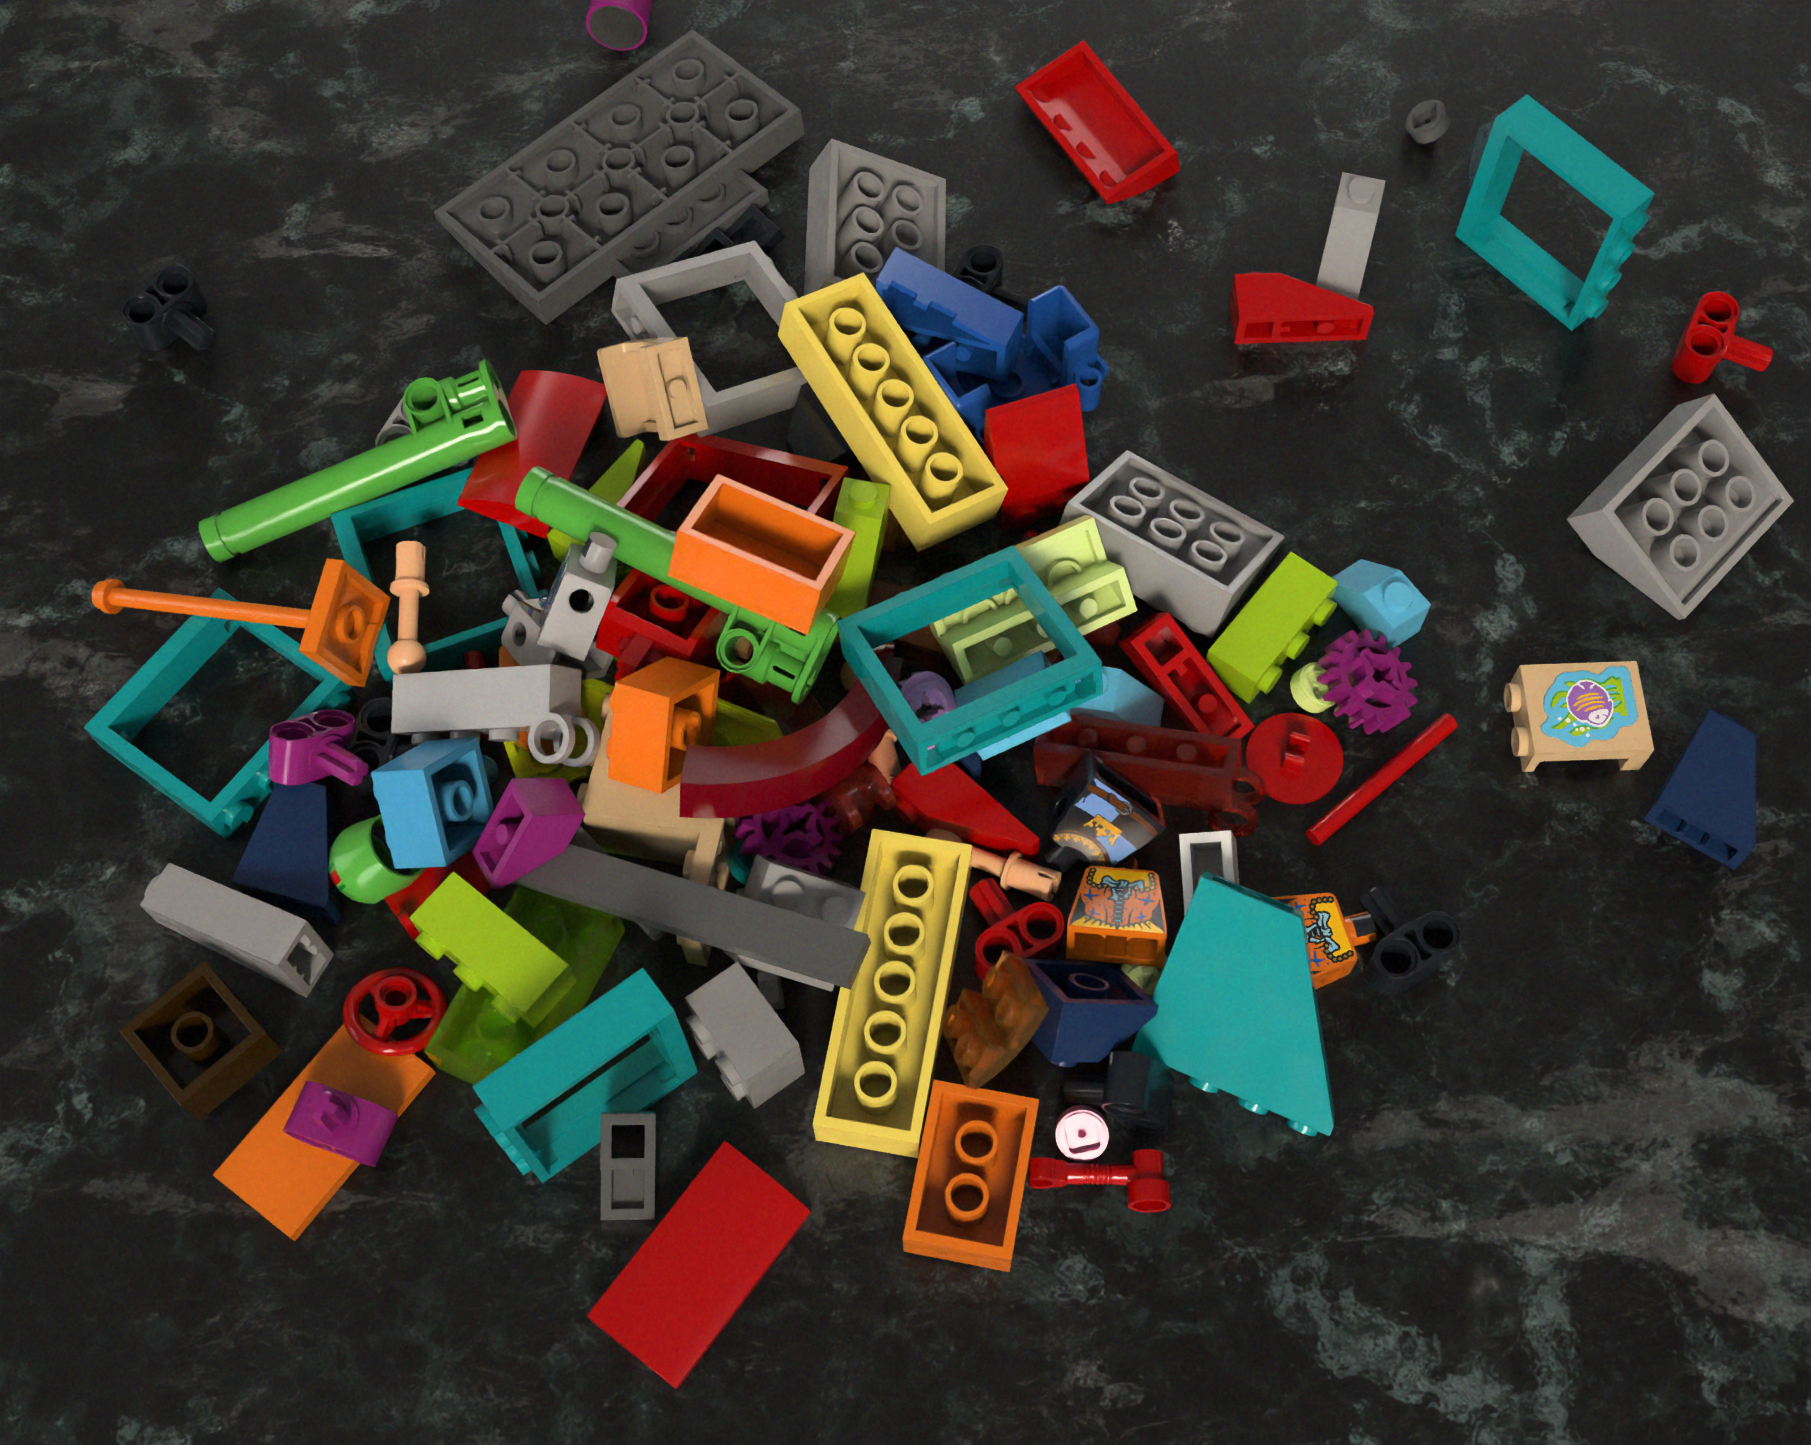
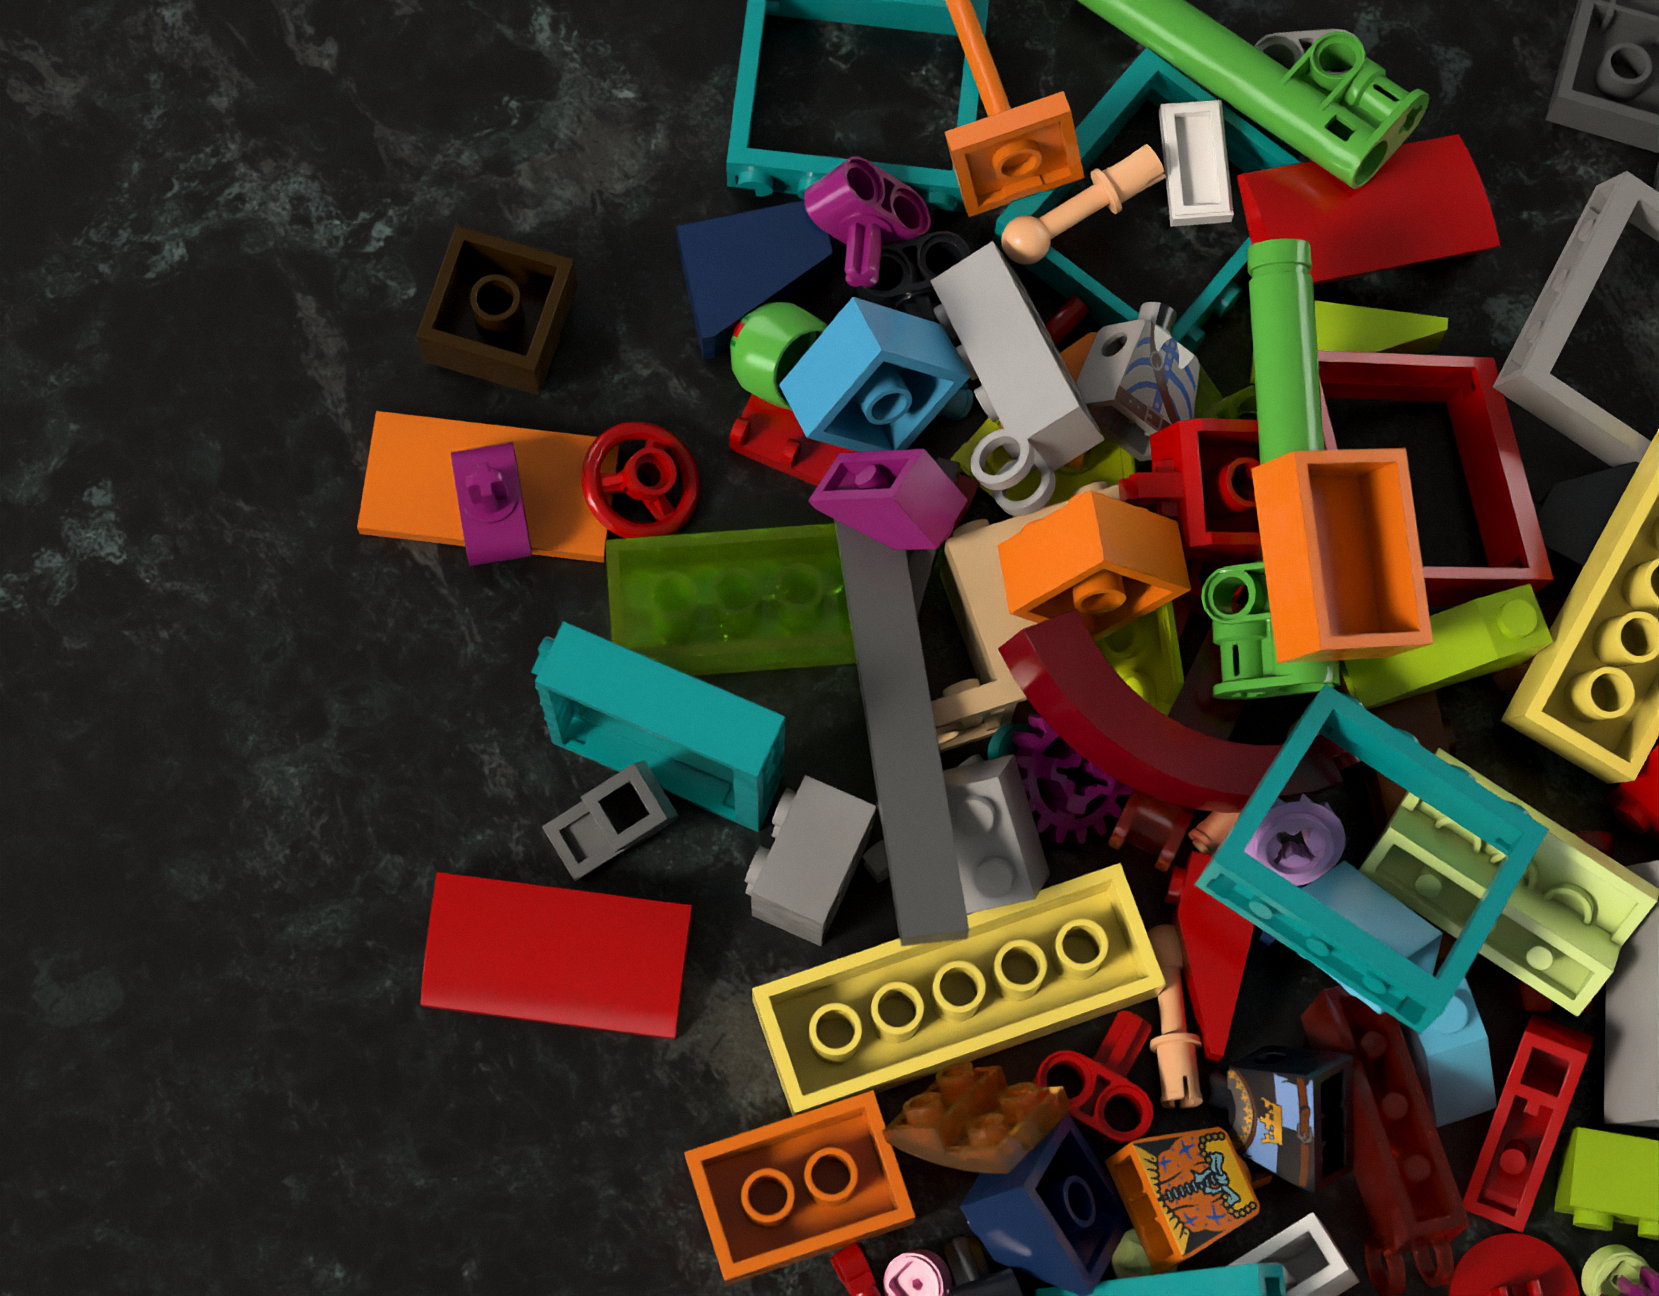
camera: 55 degrees right, 10 degrees up
(238, 927) = (633, 265): light grey slope -> none
(436, 526) = (1196, 163): none -> white tile
(492, 951) = (741, 543): lime brick -> none
(579, 596) = (1210, 379): light grey torso -> none
(653, 387) = (1518, 297): tan panel -> none

